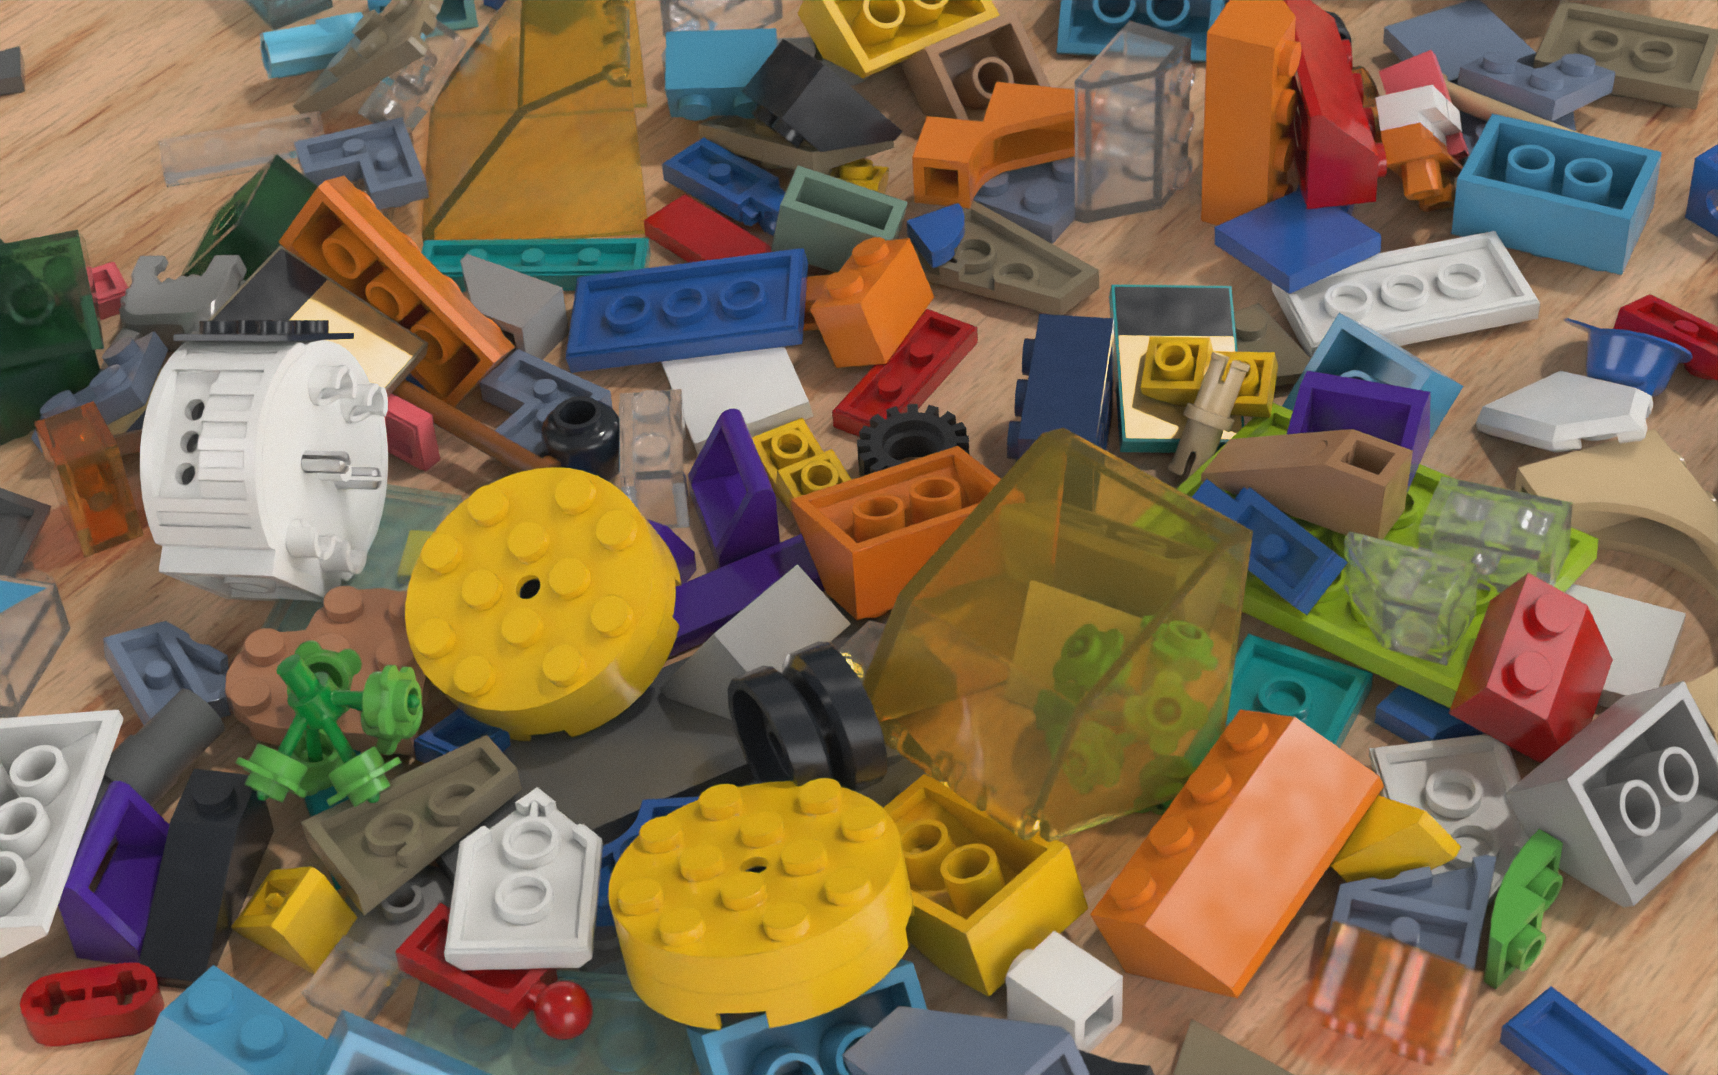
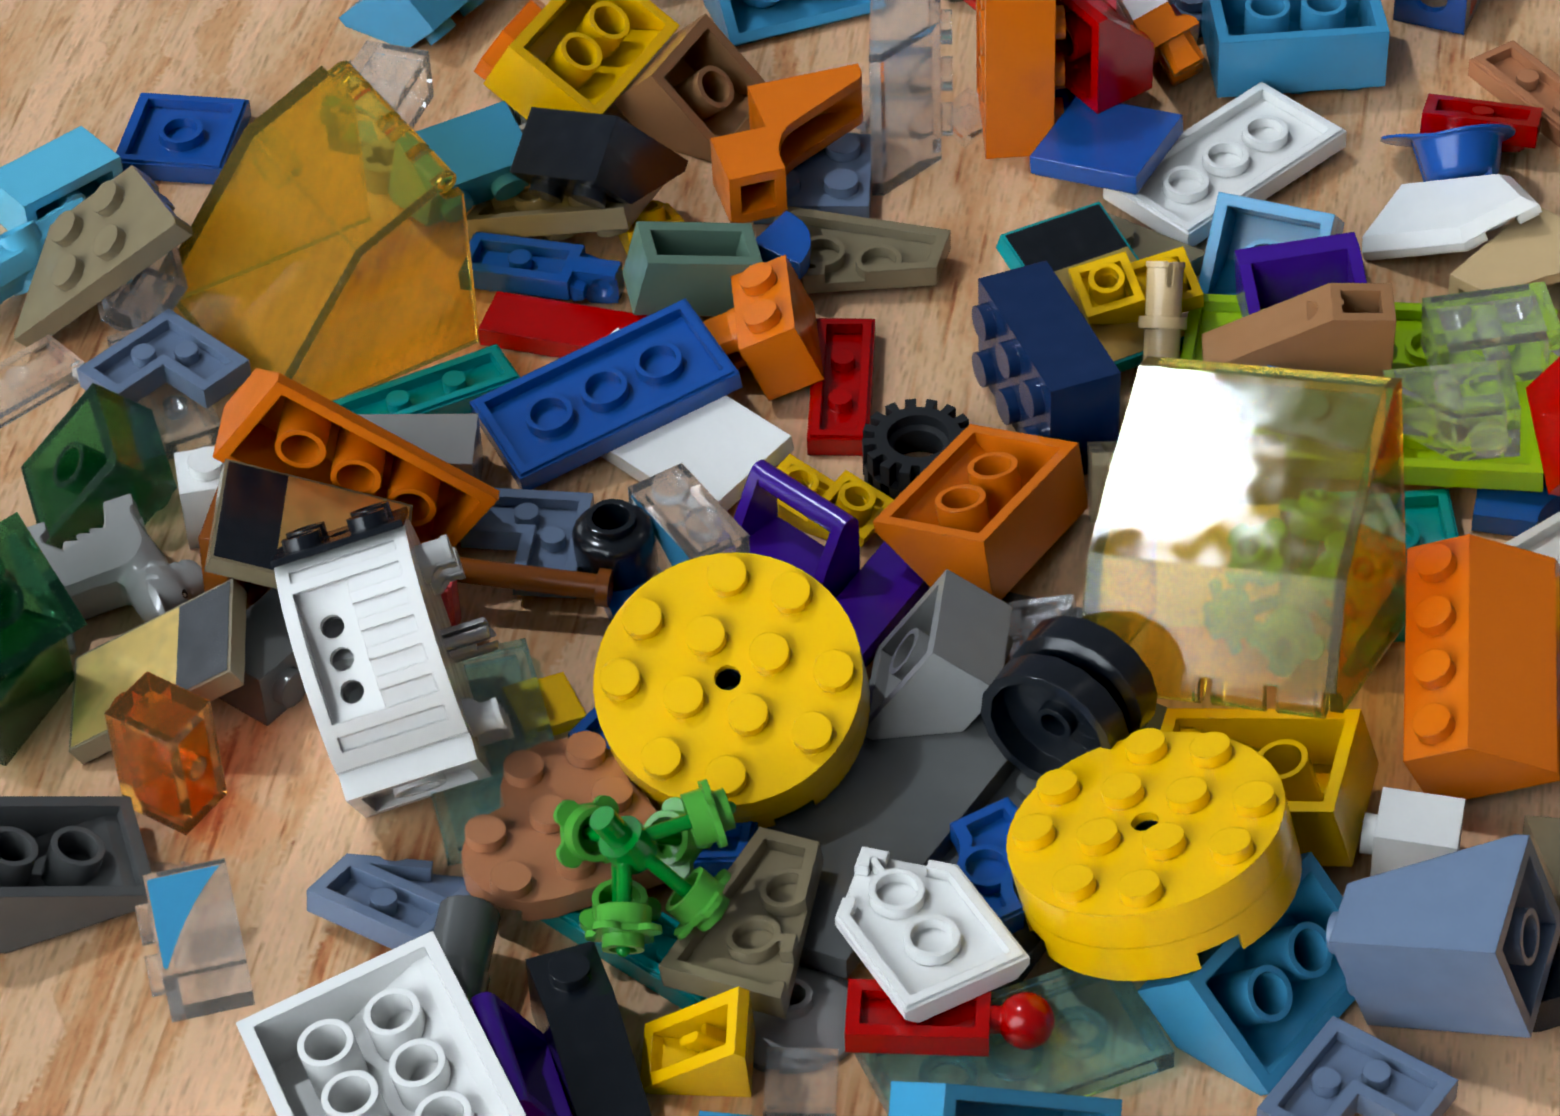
camera: 30 degrees left, 0 degrees up
(121, 383) = (112, 660): sand blue plate -> none

